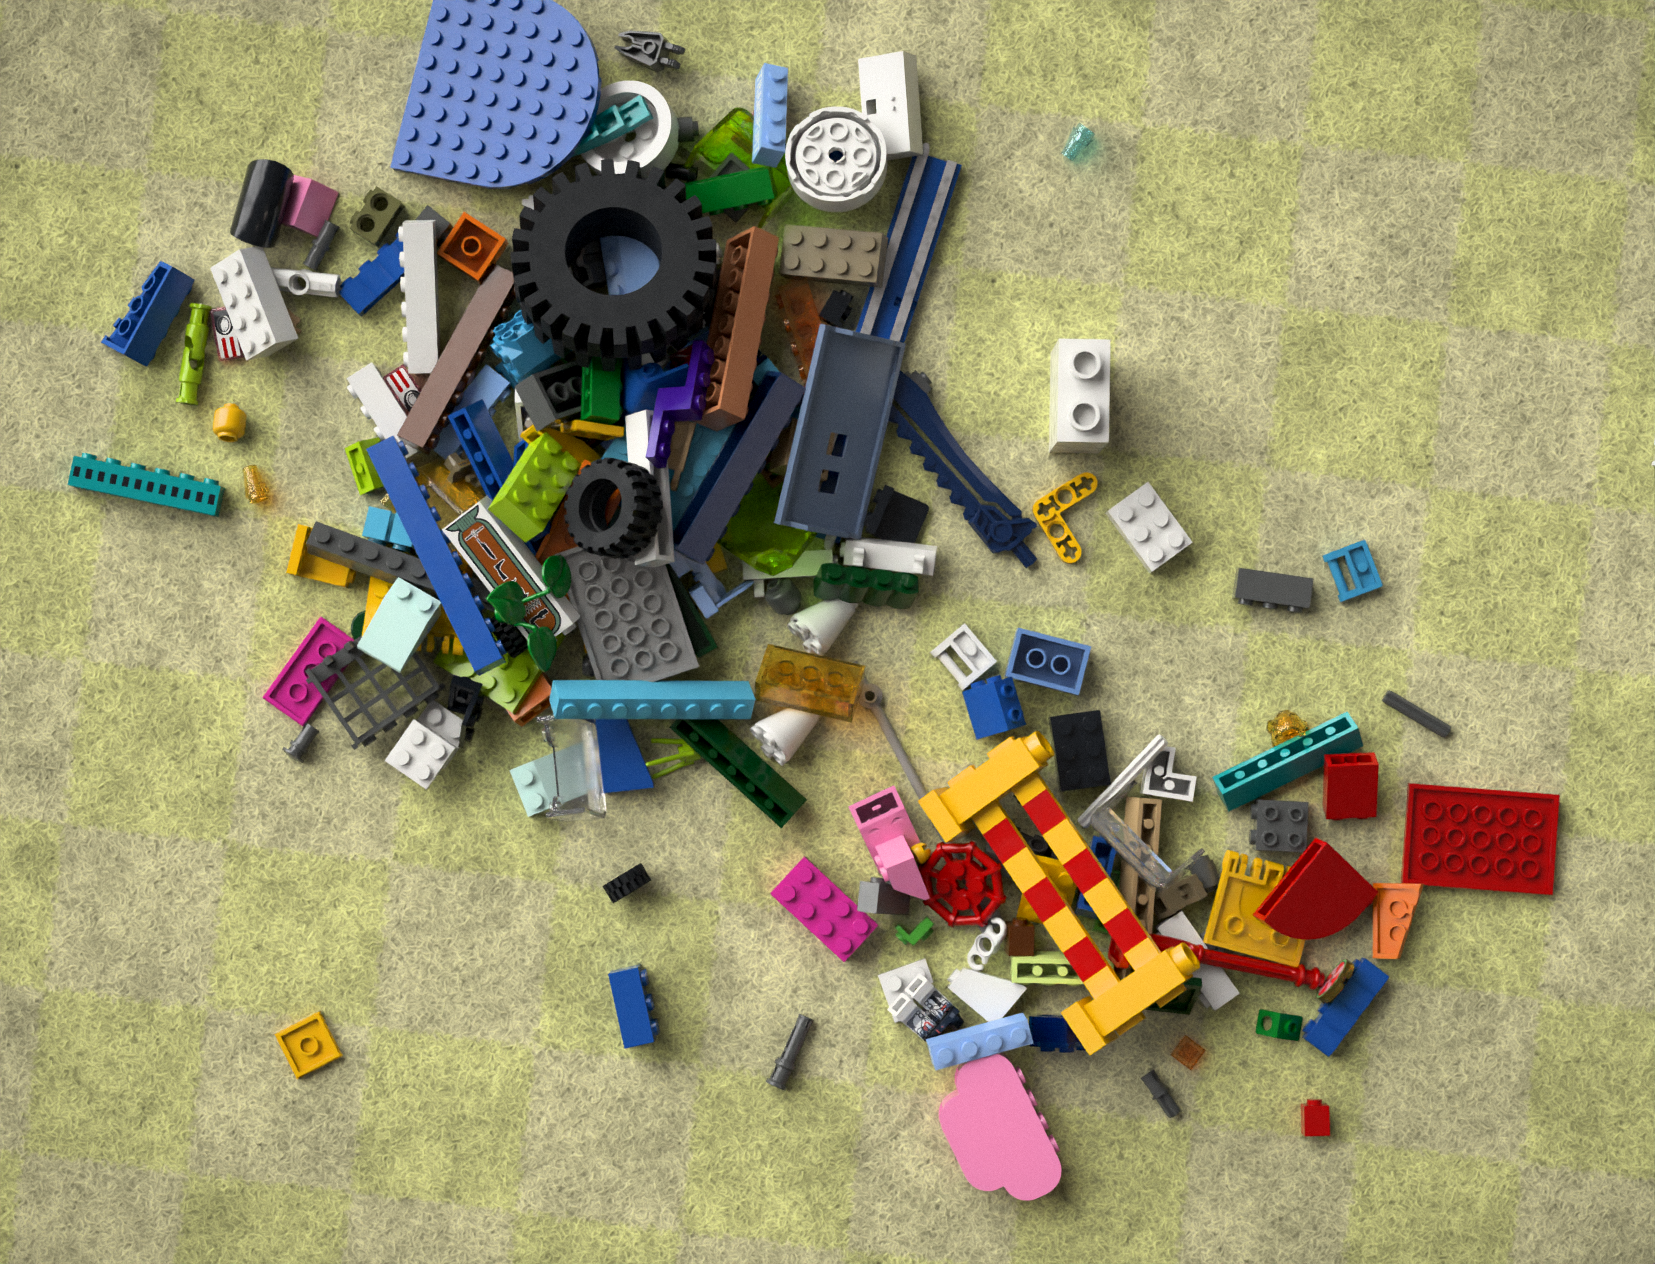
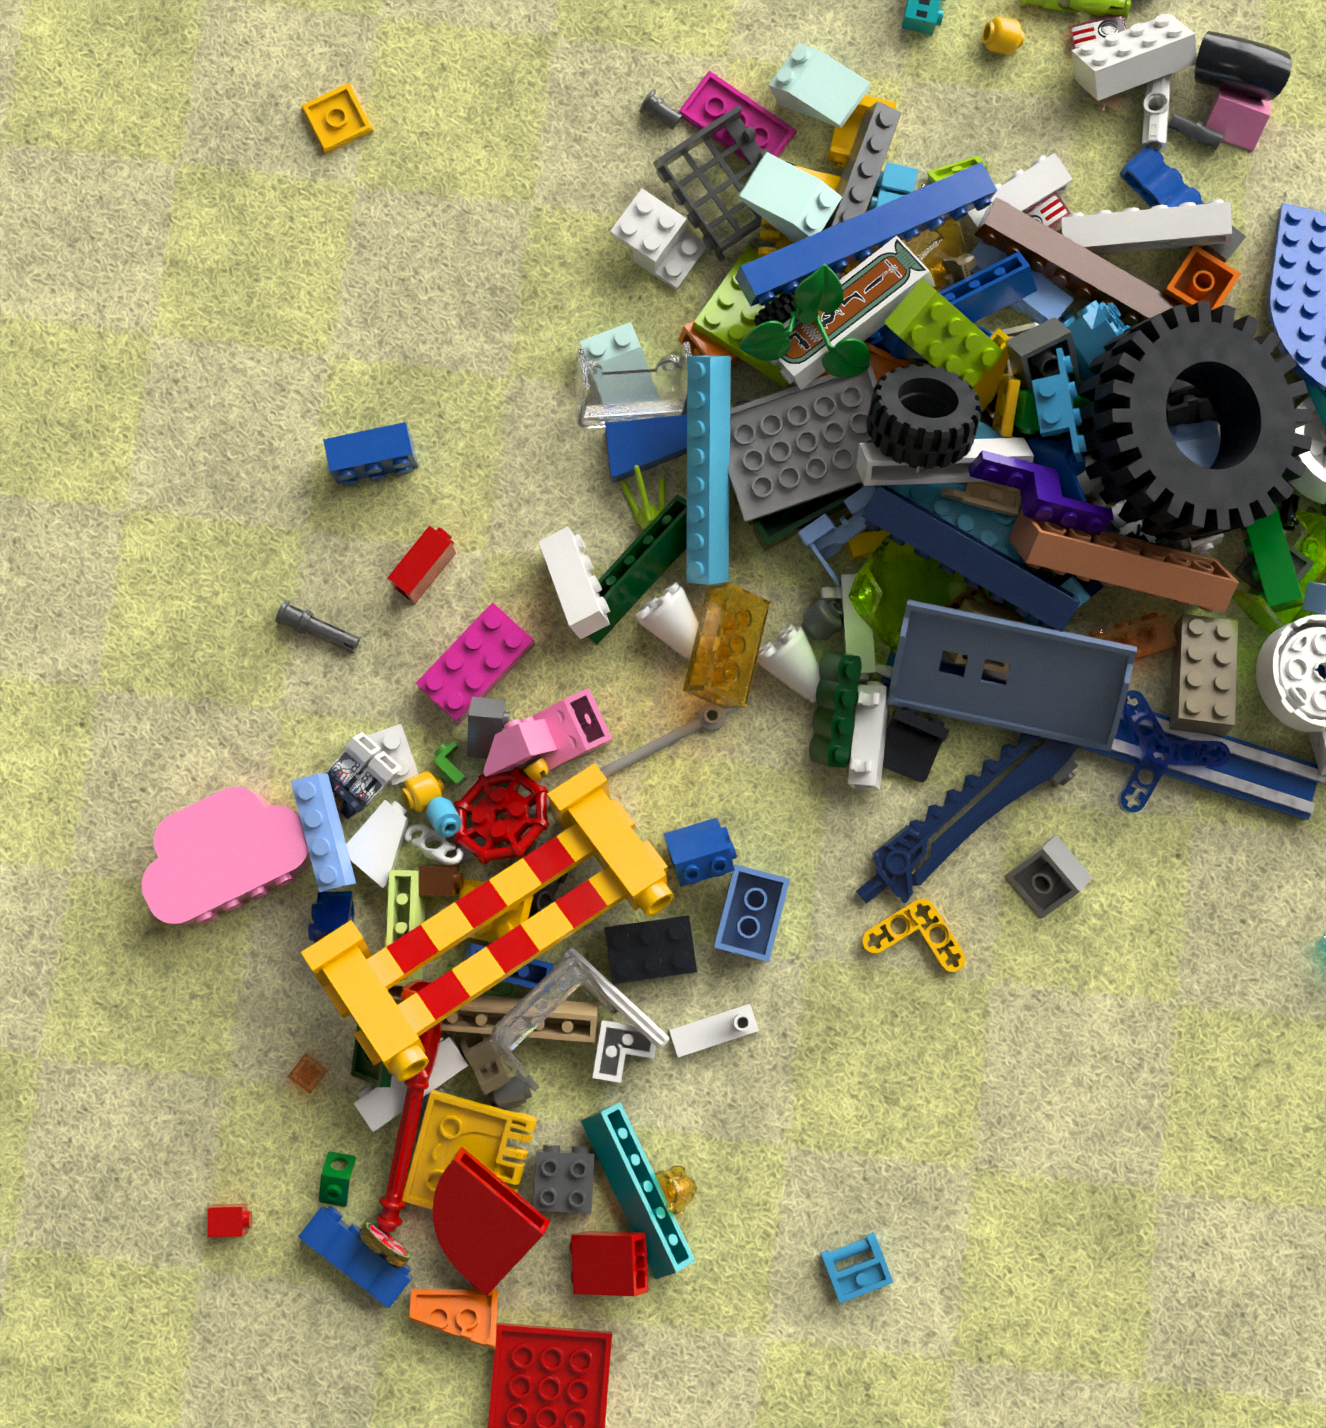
camera: 85 degrees right, 5 degrees down
(255, 486) = (935, 62): clear yellow cone -> none
(283, 595) = (818, 86): none -> light aqua slope
(382, 219) = (1227, 191): olive brick -> none
(466, 699) = (704, 279): black bracket -> none
(602, 388) = (1055, 405): none -> dark azure bracket
(626, 883) = (506, 448): black tyre -> none
(734, 957) = (422, 563): none -> red brick
(753, 819) = (574, 582): none -> white brick
(836, 308) = (1146, 679): black brick -> none
(914, 301) = (1171, 757): none -> clear blue piece
(939, 954) = (421, 790): none -> yellow head
(963, 935) = (443, 817): none -> medium azure brick
(969, 650) = (762, 827): white plate -> none
(1013, 396) = (1049, 876): none -> light grey slope
(1079, 396) = (1058, 945): white brick -> none
(1148, 527) = (904, 1030): white brick -> none
(1149, 694) = (713, 1030): none -> white piece
(1160, 1093) = (261, 1041): dark grey axle -> none
(1272, 589) = (834, 1173): dark grey brick -> none
(1416, 713) = (692, 1342): dark grey axle -> none

